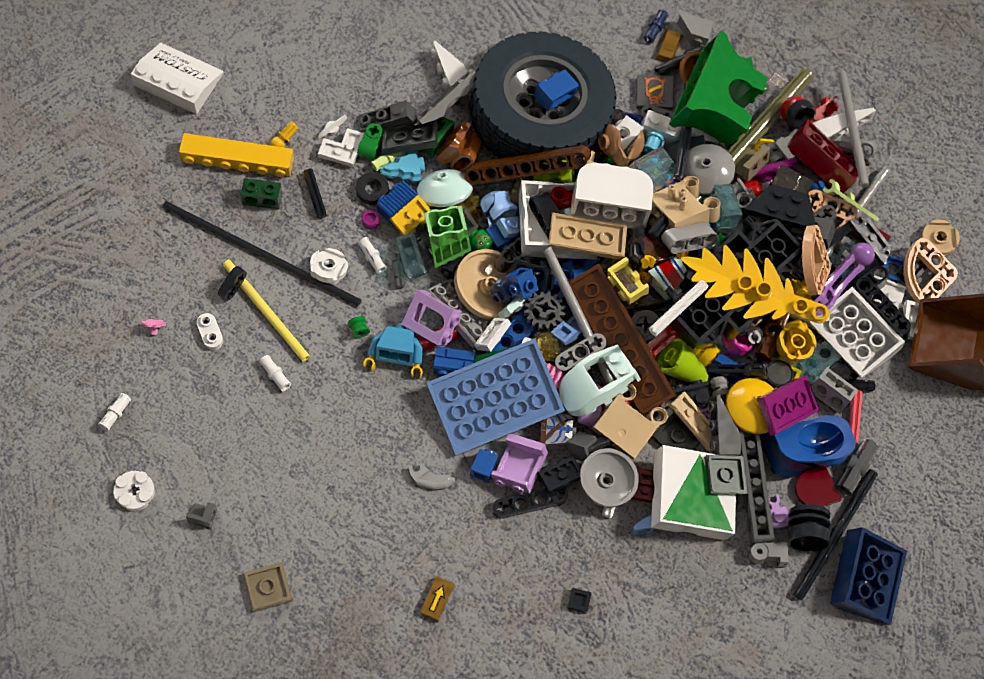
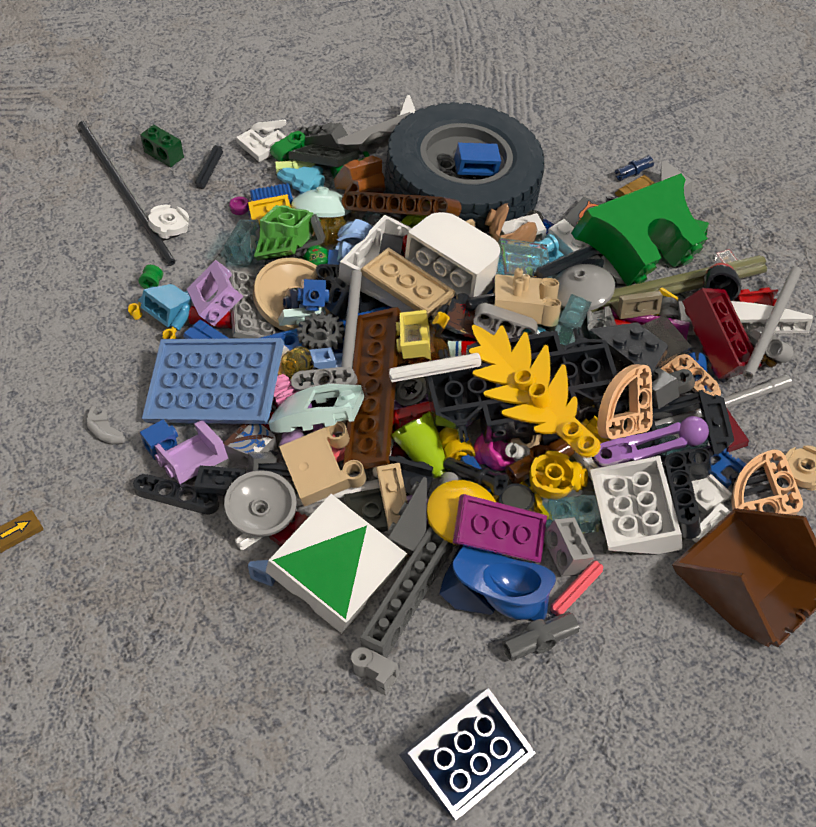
camera: 40 degrees right, 15 degrees down
(176, 77) = (172, 43): white slope -> none
(209, 330) = (28, 227): white plate -> none
(232, 283) = (78, 198): black beam -> none
(236, 155) = (169, 112): yellow brick -> none
(270, 316) = (87, 241): light yellow piece -> none
(275, 373) = (49, 280): white pin -> none
(285, 135) = (213, 120): yellow axle -> none
(371, 177) = (258, 175): black tyre -> none
(372, 255) = (214, 231): white pin -> none
(492, 334) = (257, 330): white plate -> none
(579, 600) = (145, 606): black tile -> none
(725, 475) = (379, 560): tile -> none
(778, 514) = (415, 638): lavender plate -> none
(808, 528) = (431, 661): black wheel -> none
(817, 488) = (479, 635): dark red tile -> none
(835, 190) = (725, 386): yellowish green flag -> none
(836, 534) = (463, 691): black axle -> none
(862, 385) = (607, 560): black axle -> none

